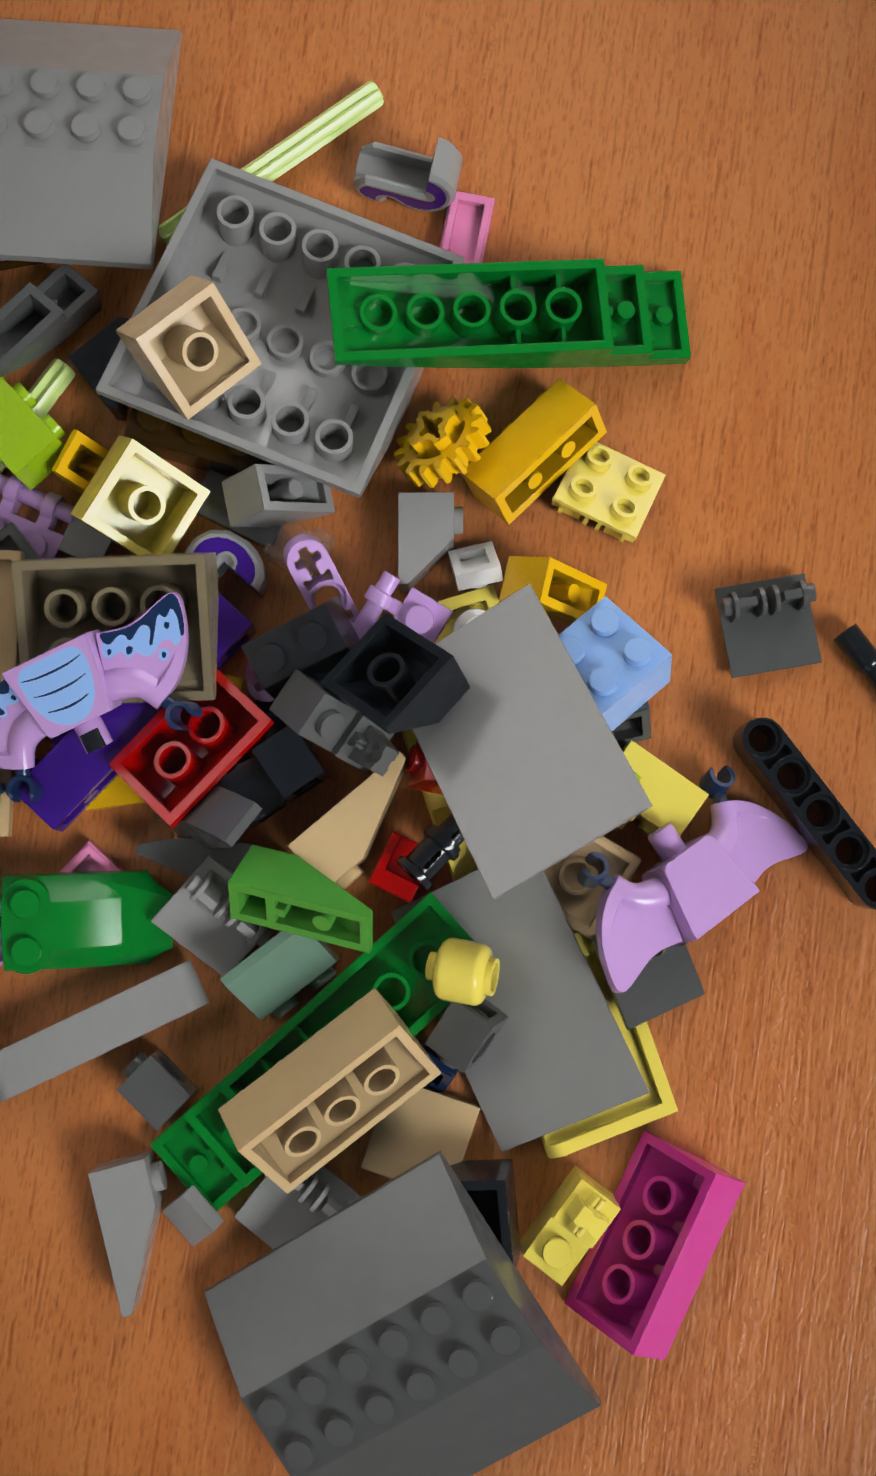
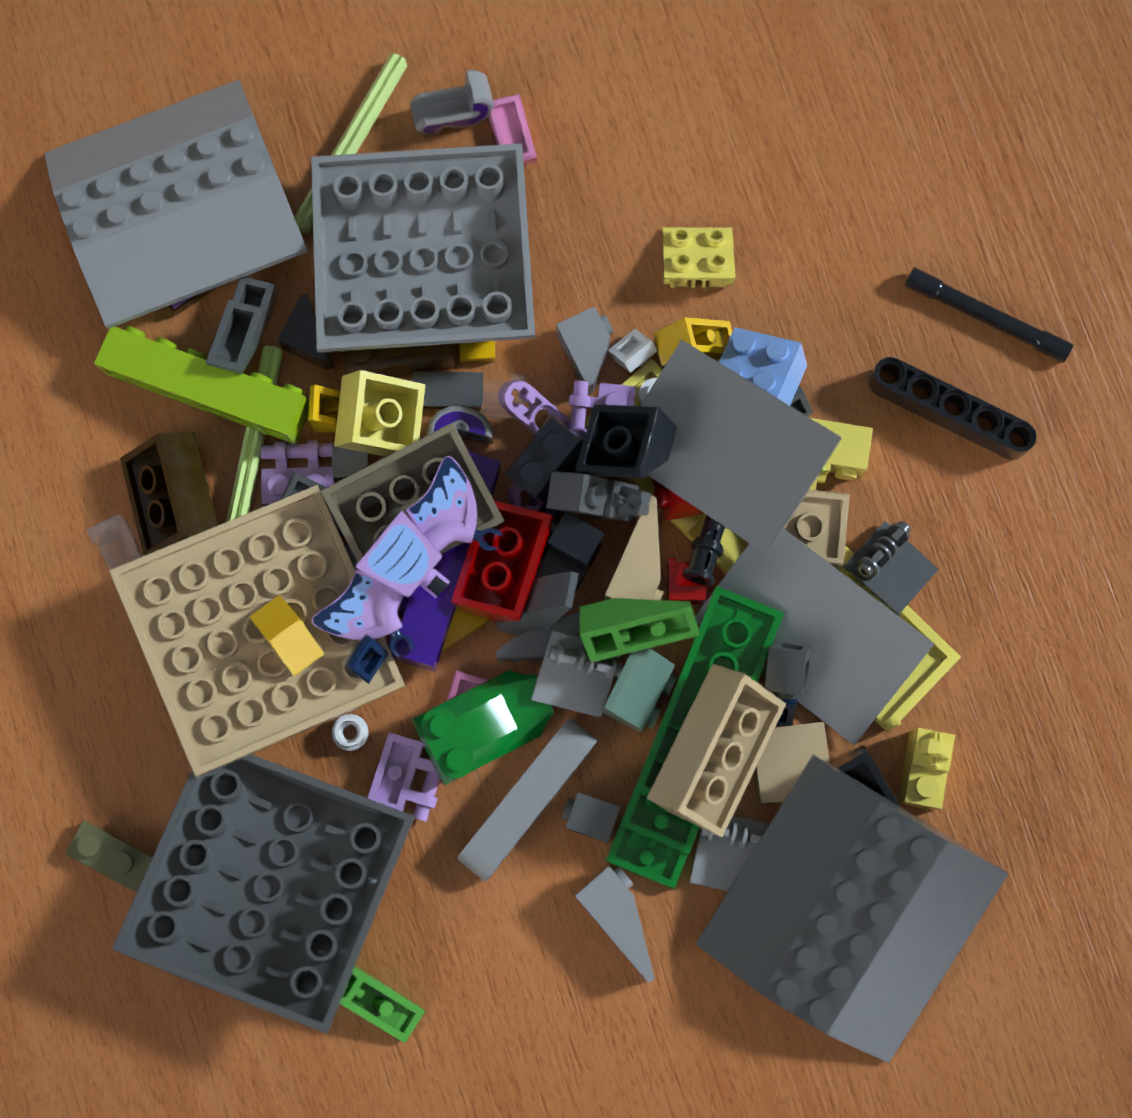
camera: 25 degrees left, 5 degrees down
(190, 345) = (369, 288): tan slope -> none
(193, 1215) = (661, 894): light grey tile -> none
(273, 497) = (471, 367): light grey slope -> none
(442, 442) = (568, 276): yellow gear -> none
(463, 971) = (766, 625): light yellow head -> none
(507, 315) = (573, 168): green slope -> none
(534, 451) = (634, 253): yellow brick -> none
(656, 1248) = (992, 755): dark pink slope -> none
(690, 886) = (891, 491): lavender torso -> none
(768, 625) = (854, 296): dark grey hinge -> none

